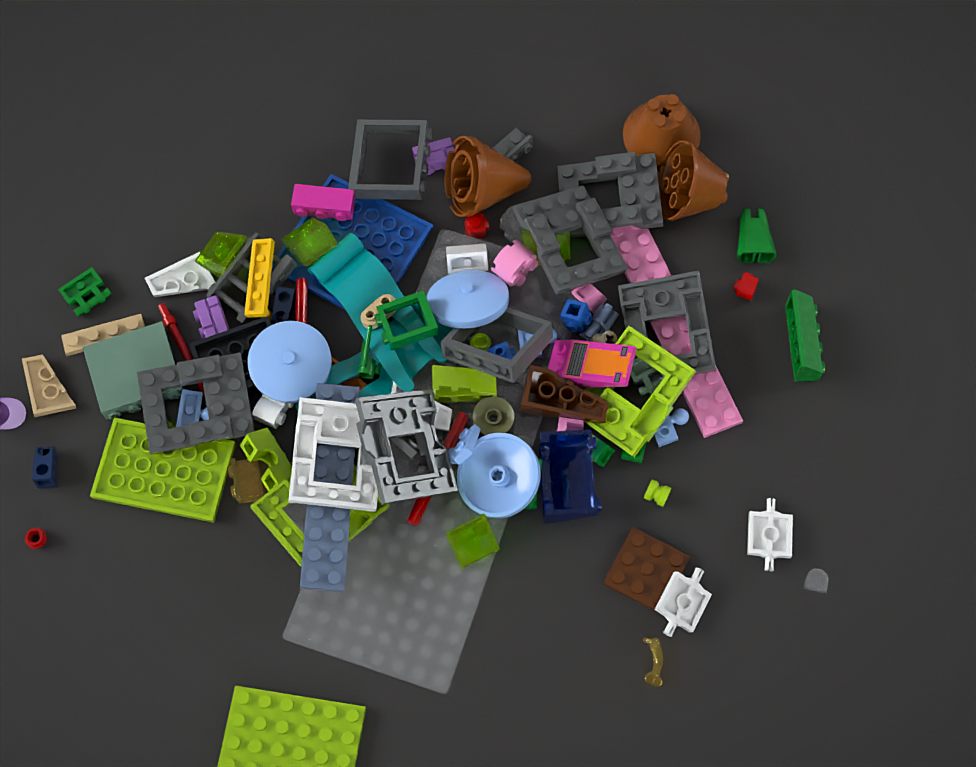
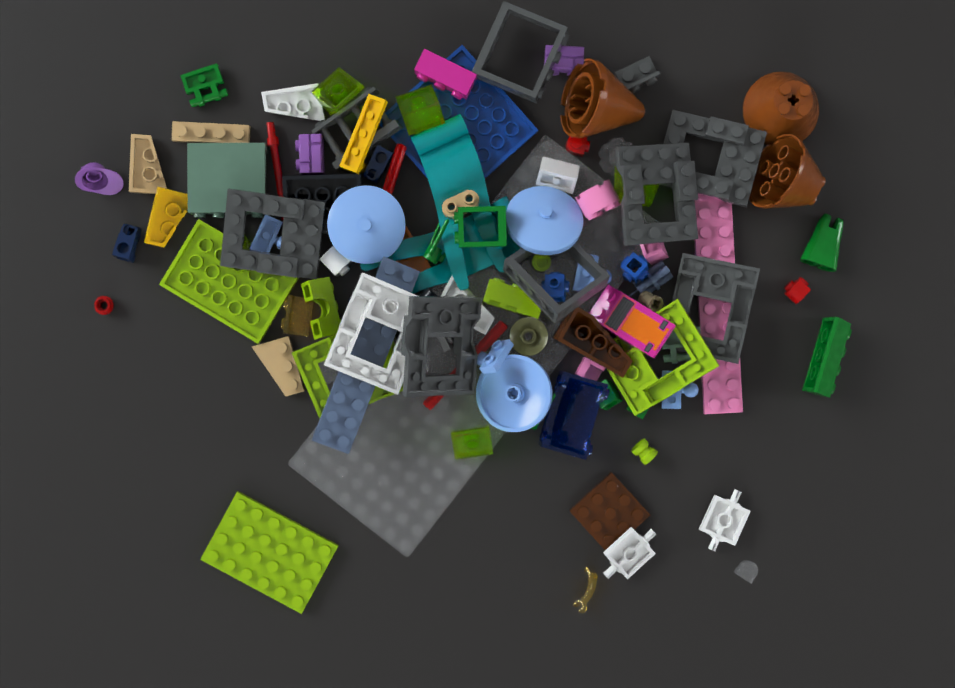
camera: 15 degrees right, 20 degrees up
(78, 426) = (166, 213): none -> yellow wing
(244, 535) = (279, 362): none -> tan wing

